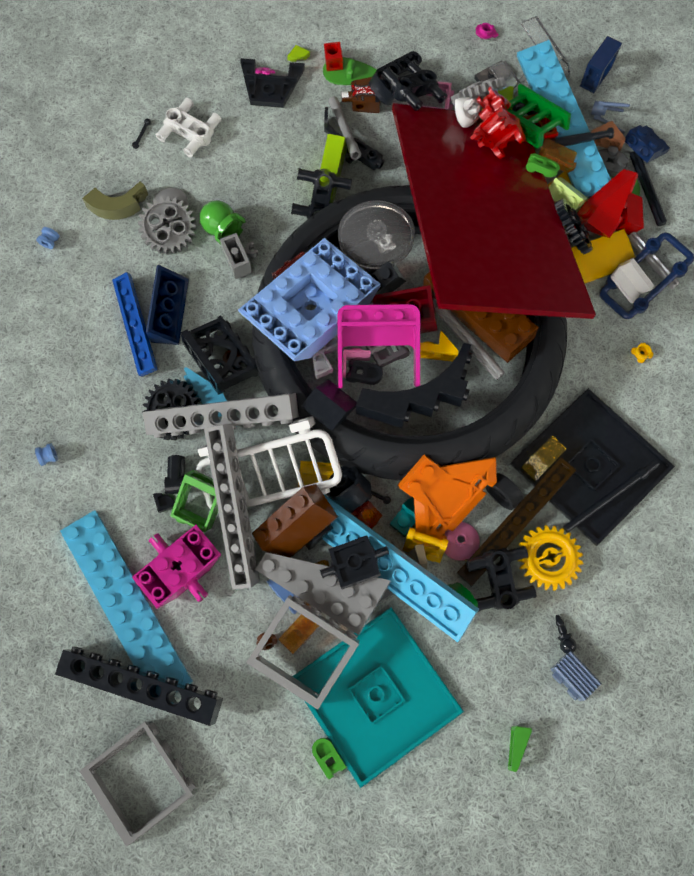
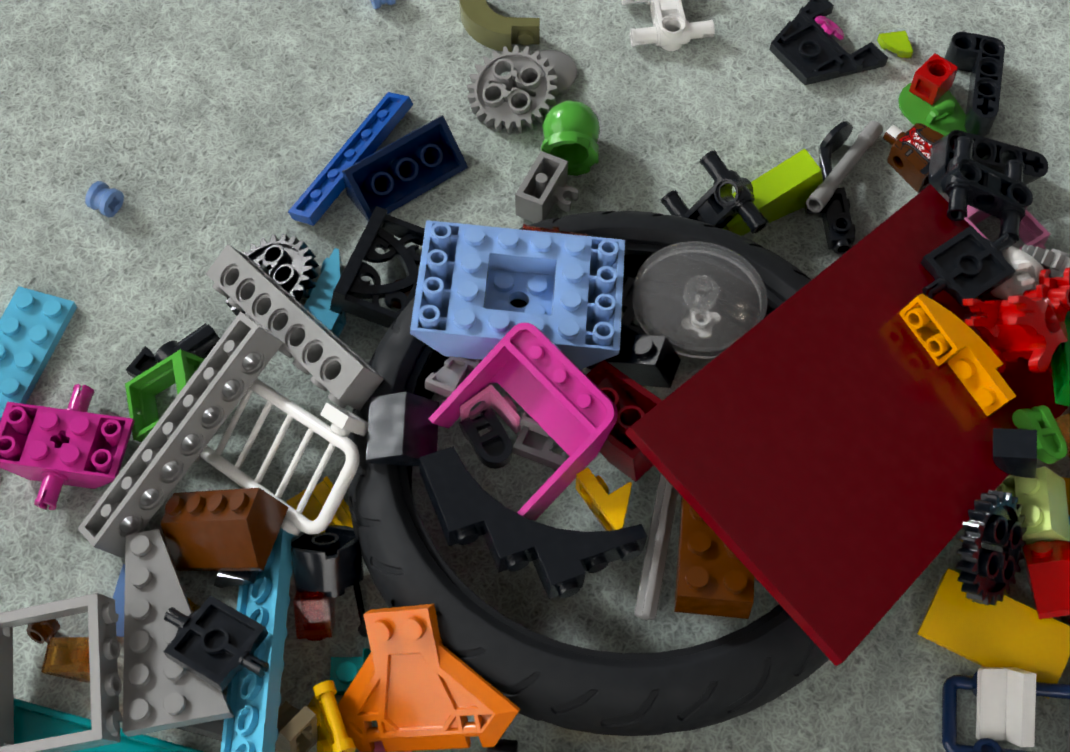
camera: 50 degrees right, 10 degrees down
(344, 30) = (985, 61): none -> black beam
(450, 123) = (968, 266): none -> black plate
(488, 159) = (954, 342): none -> light orange slope
(546, 180) = (1015, 451): none -> black brick

